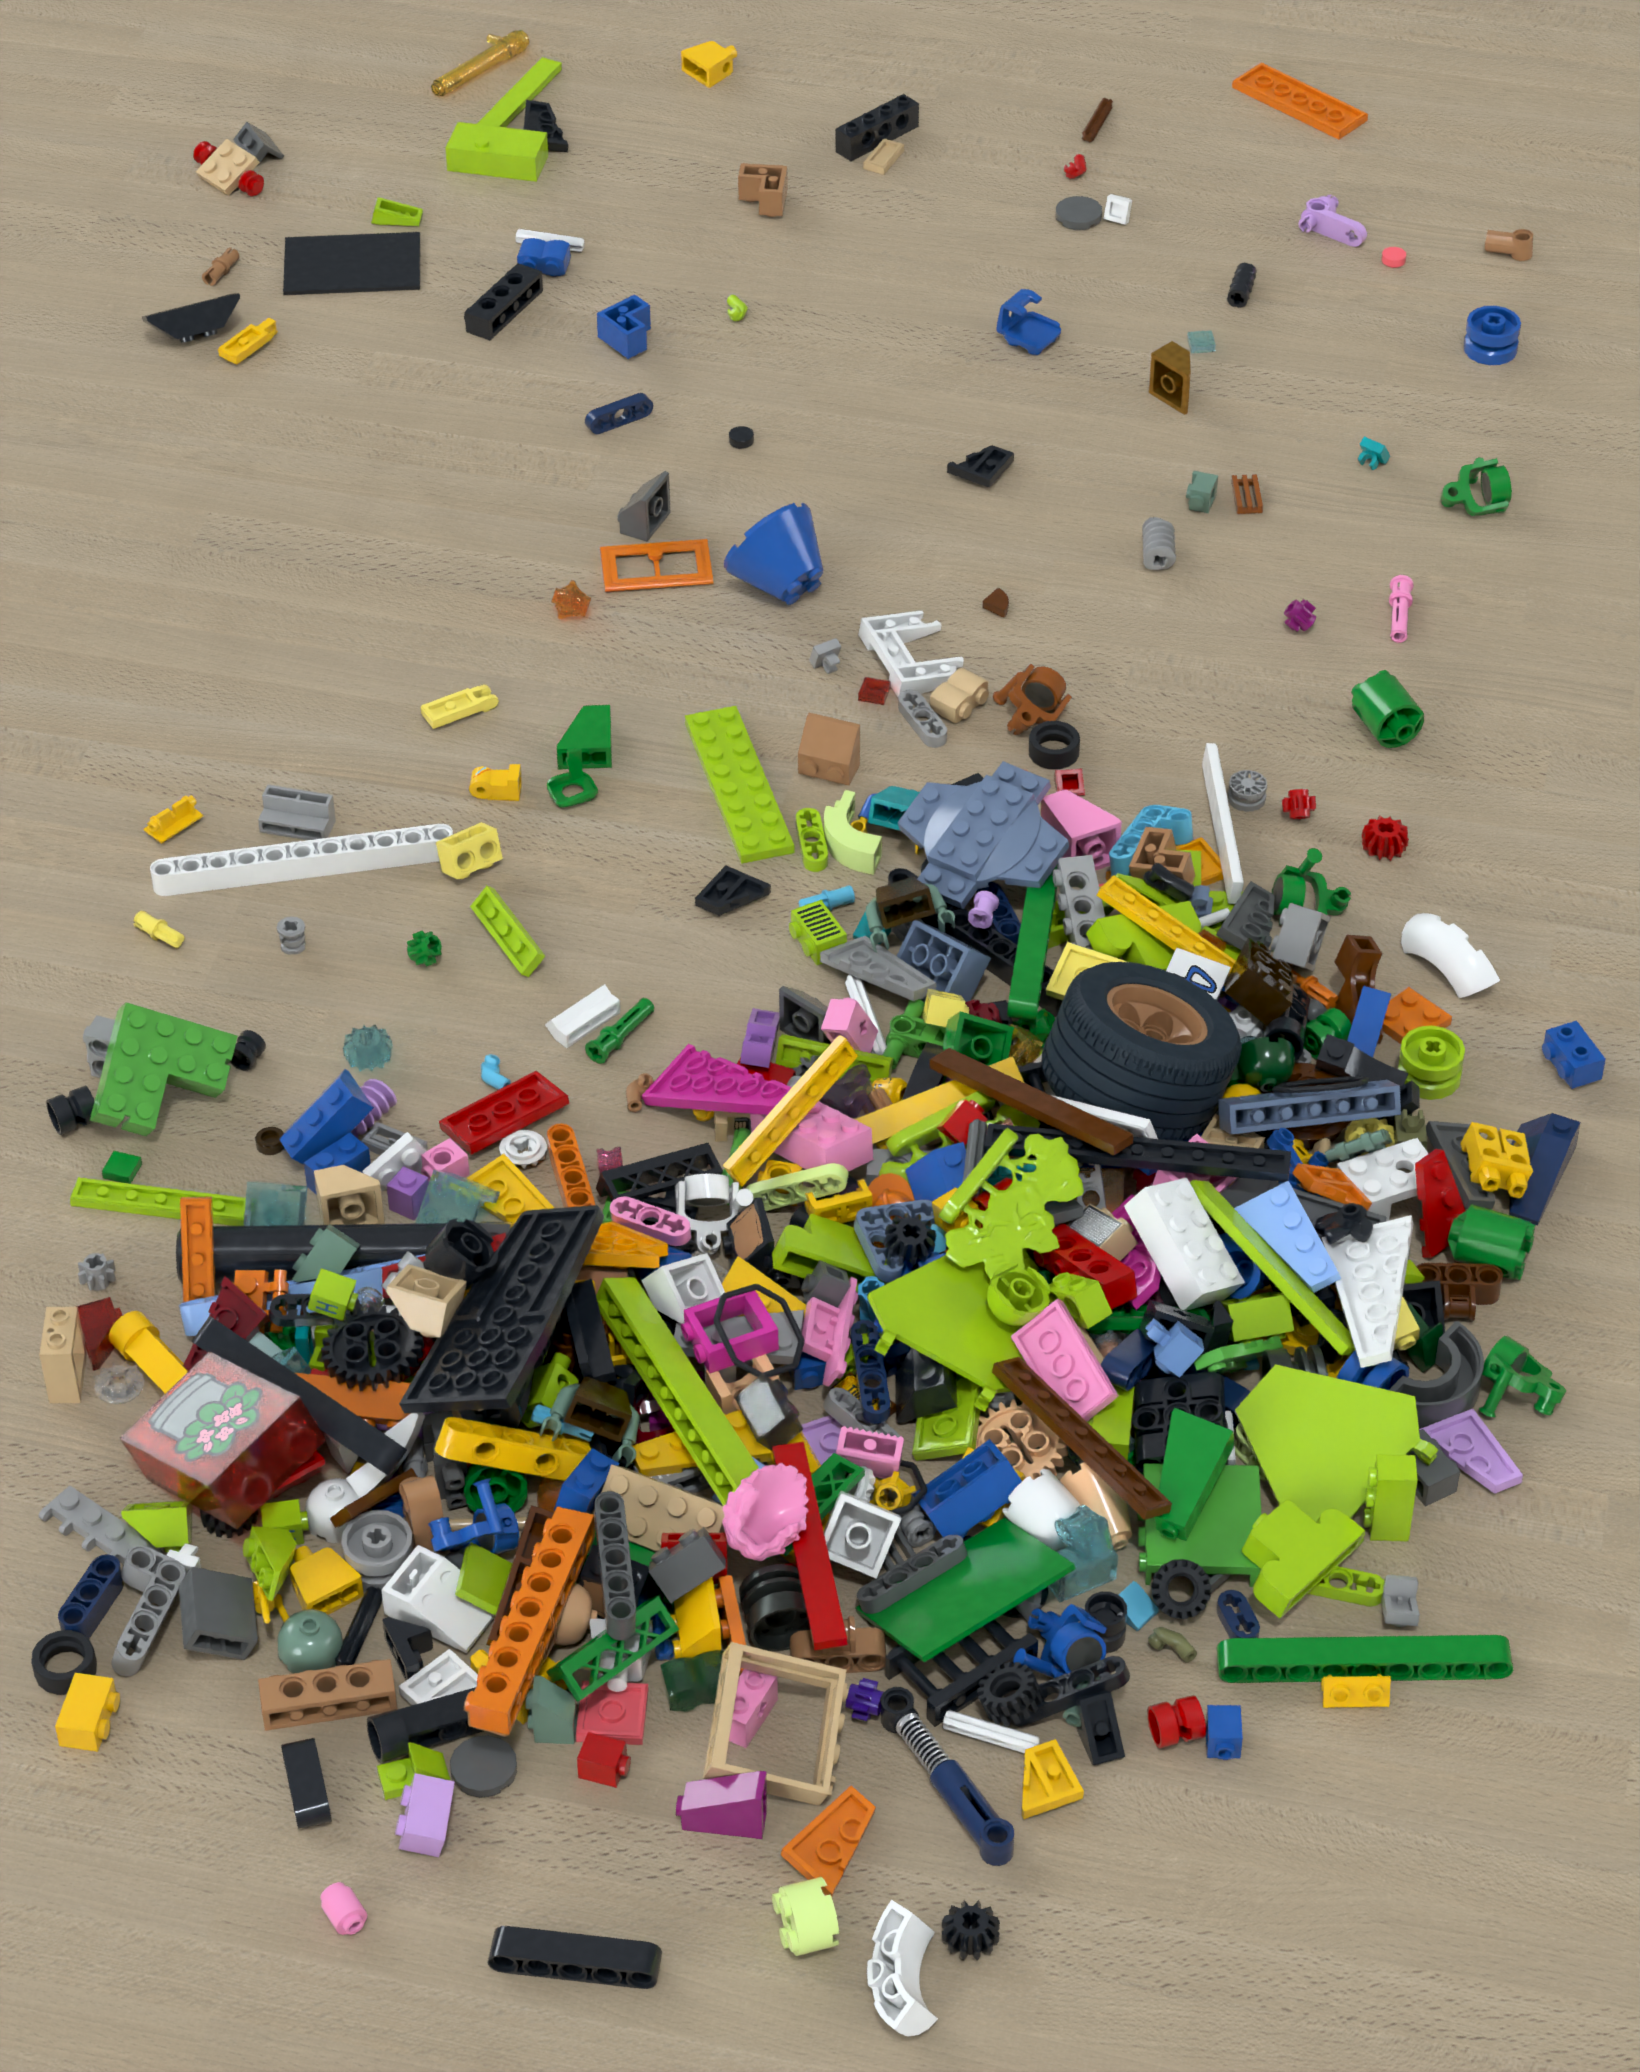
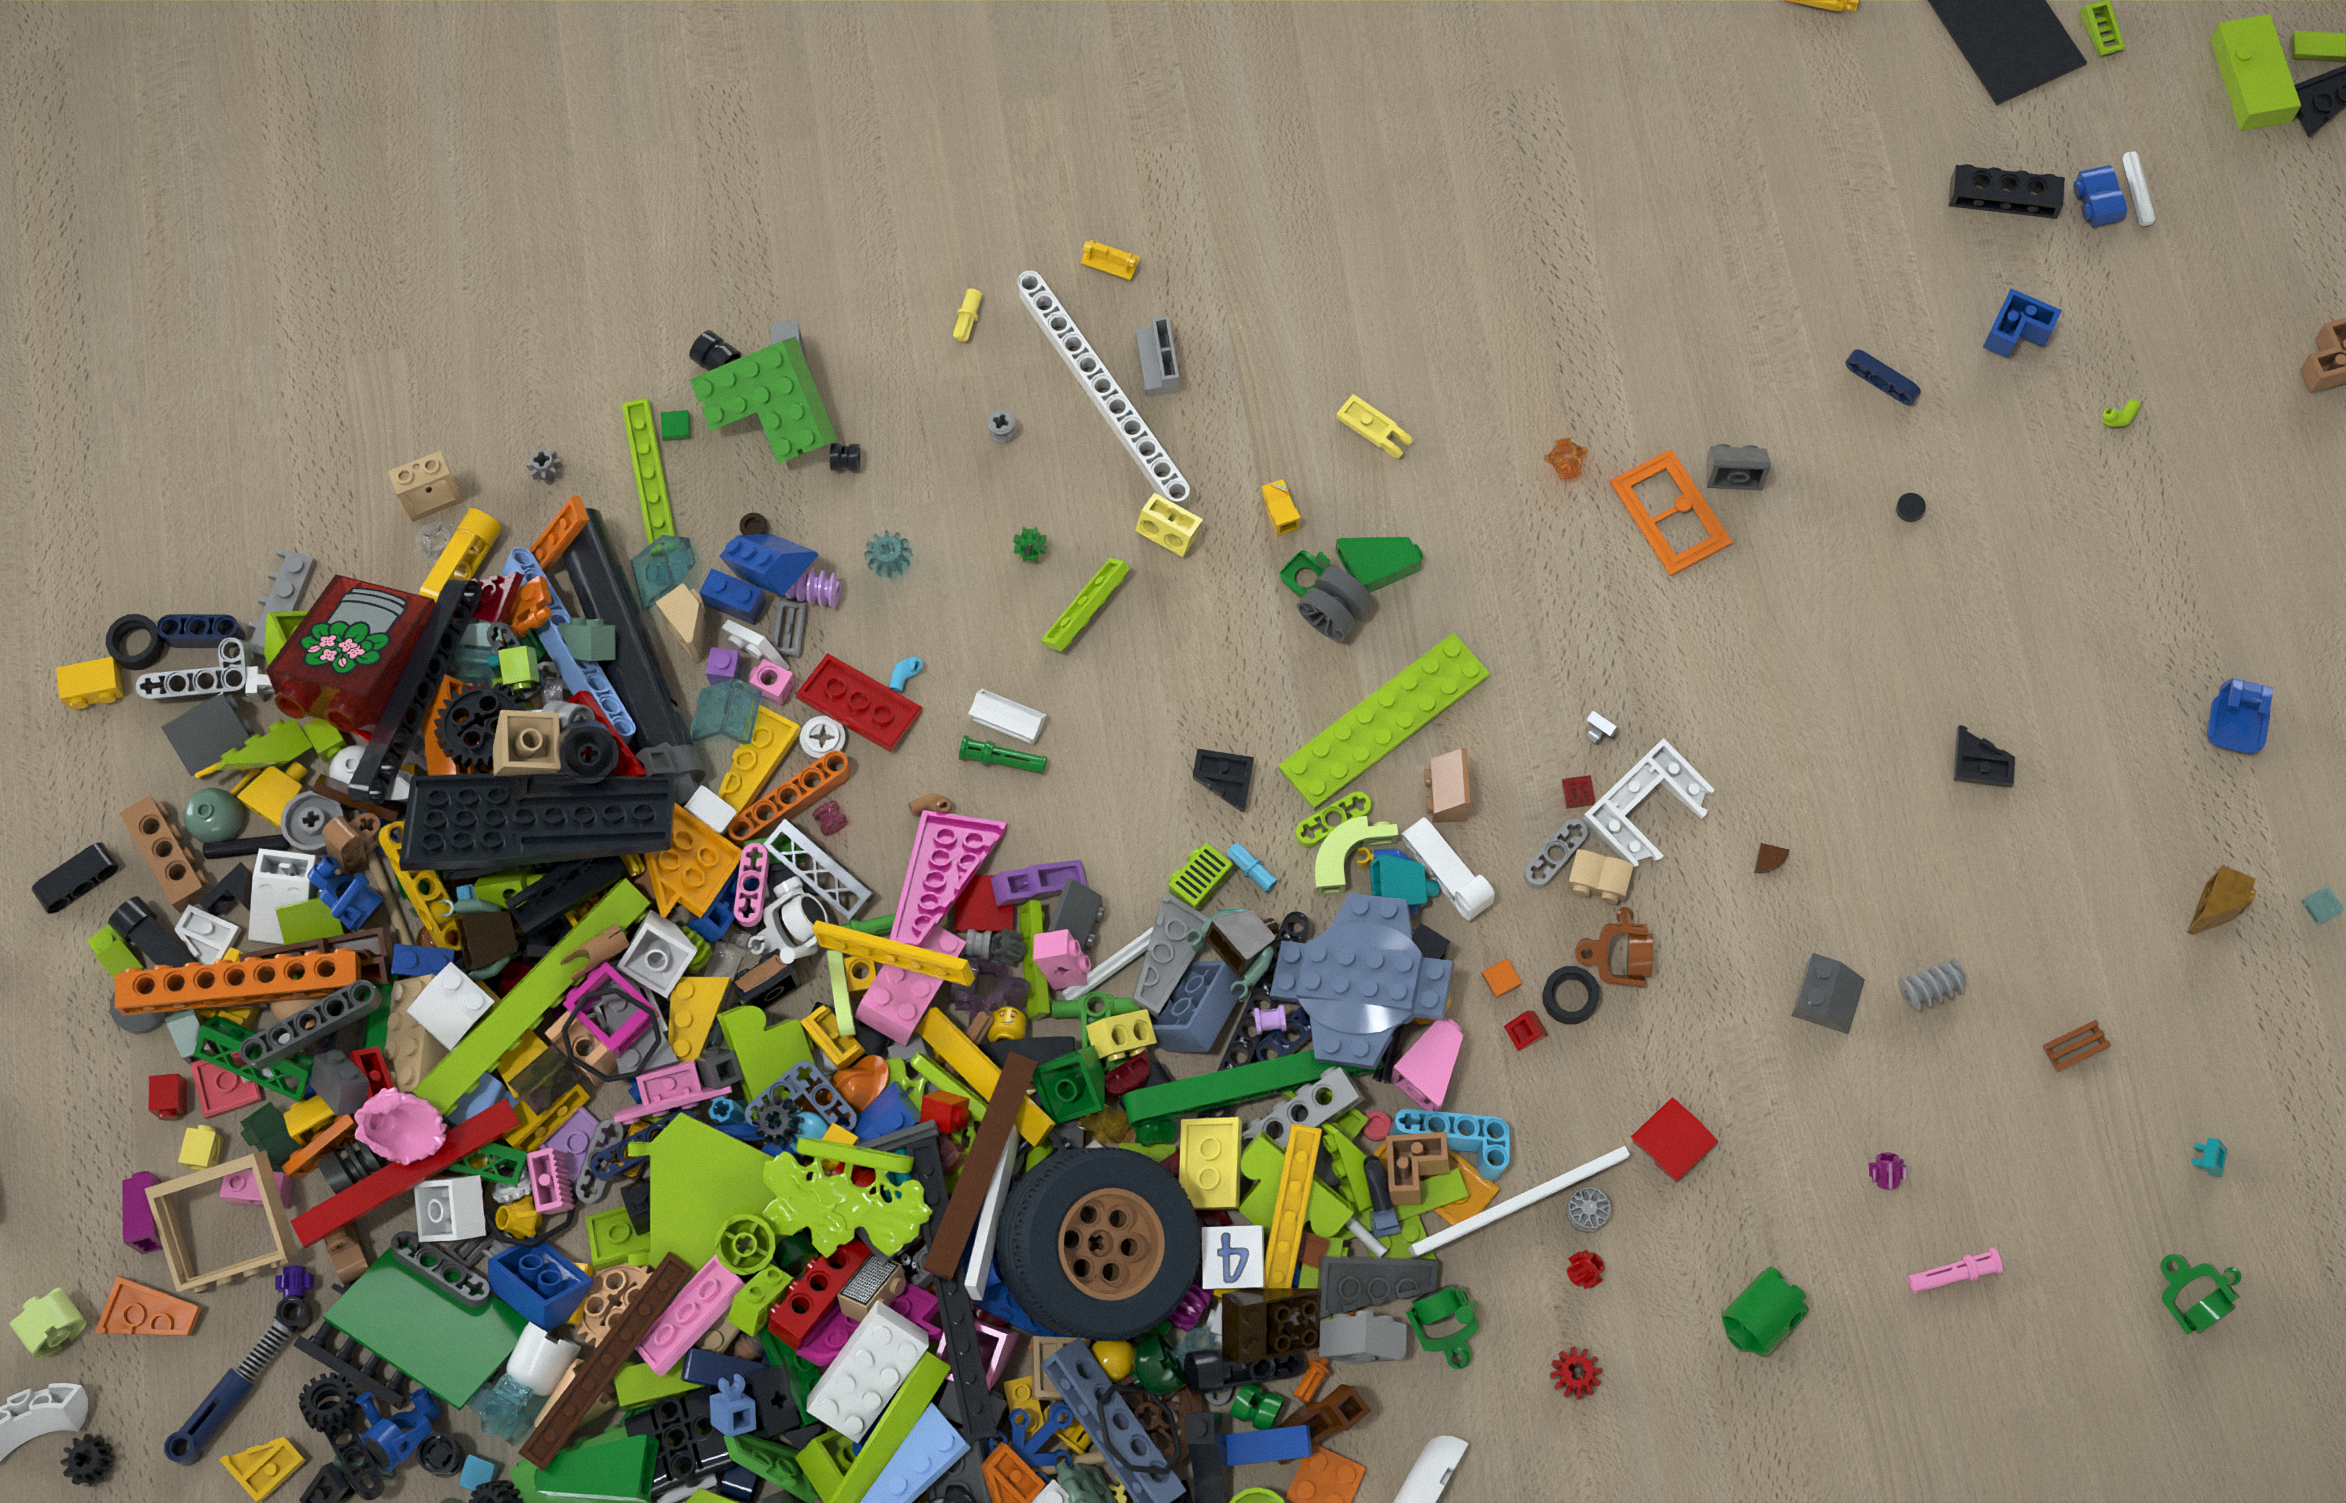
camera: 70 degrees right, 25 degrees up
(96, 1323) = (481, 493): clear red slope -> none
(426, 1815) = (65, 983): lavender brick -> none
(616, 766) = (1335, 603): none -> dark grey wheel
(656, 1449) = (450, 1006): none -> white slope
(666, 1313) = (598, 950): none -> medium nougat piece
(668, 1196) = (790, 884): none -> white tile
(678, 1745) = (201, 1148): none -> light yellow brick
(779, 554) = (1704, 628): blue cone -> none
(935, 768) = (1461, 887): none -> white beam
(989, 1731) = (303, 1373): white axle -> none
(1130, 606) = (1828, 994): none -> dark grey slope
(1202, 491) = (2047, 999): sand green brick -> none
(1211, 723) = (1674, 1139): none -> red slope
(1315, 1009) = (1288, 1386): dark grey hinge -> none

